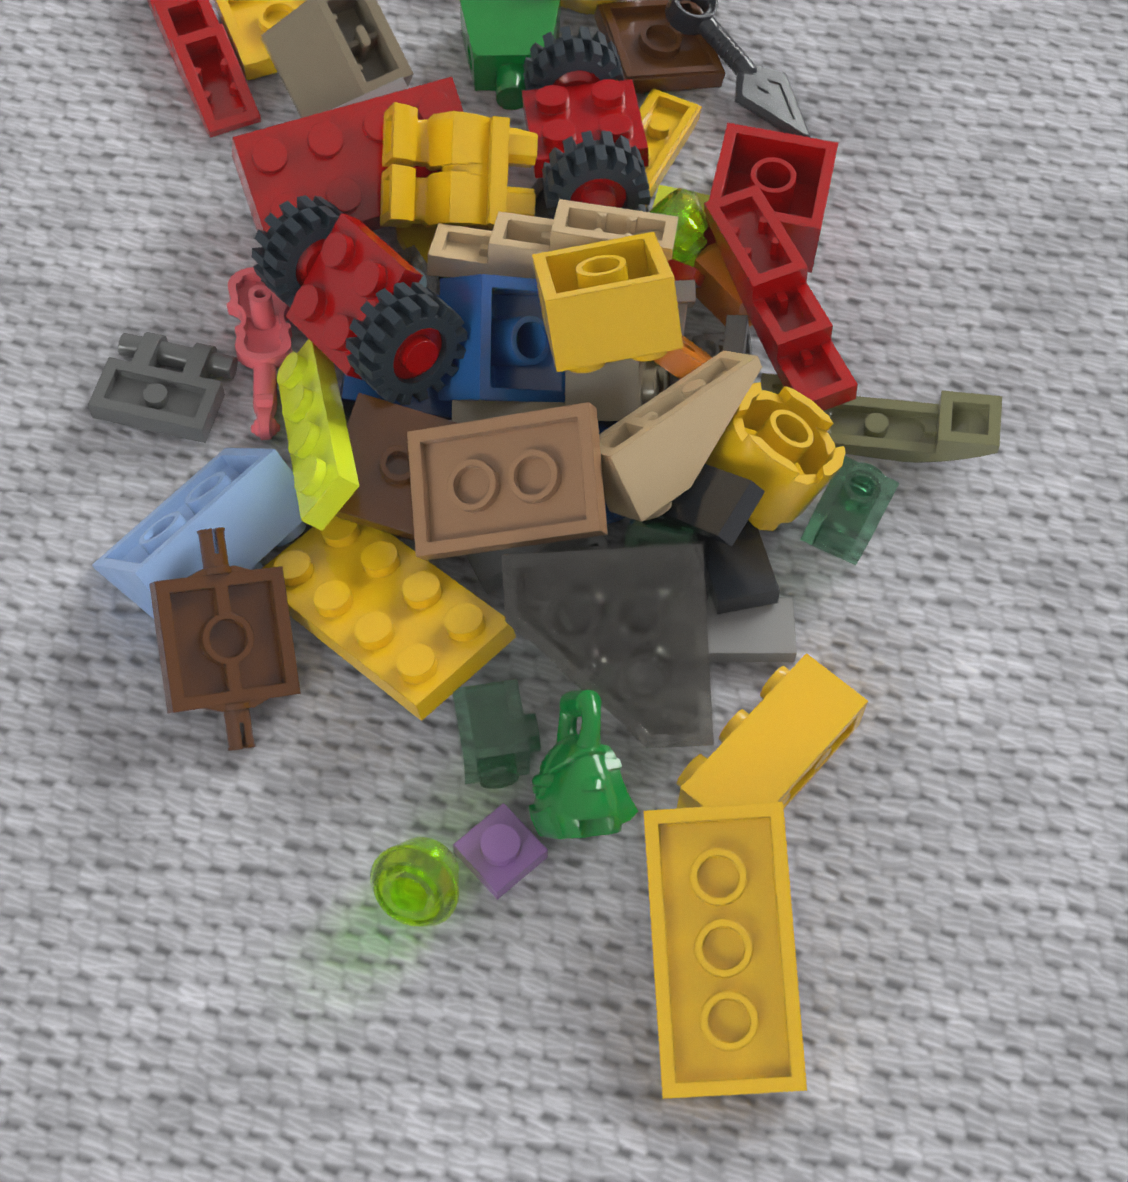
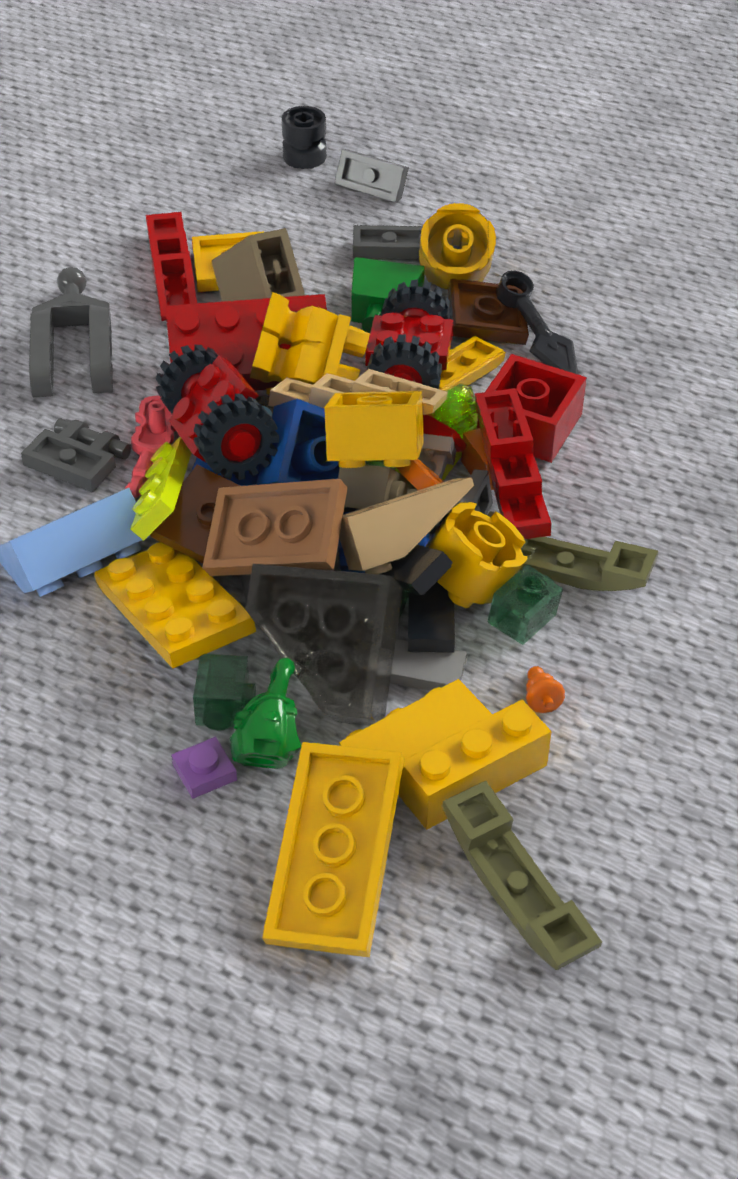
camera: 15 degrees right, 15 degrees down
(83, 145) = (70, 310): none -> dark grey piece
(224, 639) = (58, 598): reddish brown plate -> none
(416, 882) = (136, 768): clear neon green cone -> none
(861, 770) = (492, 750): none -> yellow brick
(909, 637) = (543, 691): none -> orange hair
(959, 935) = (511, 876): none -> olive slope

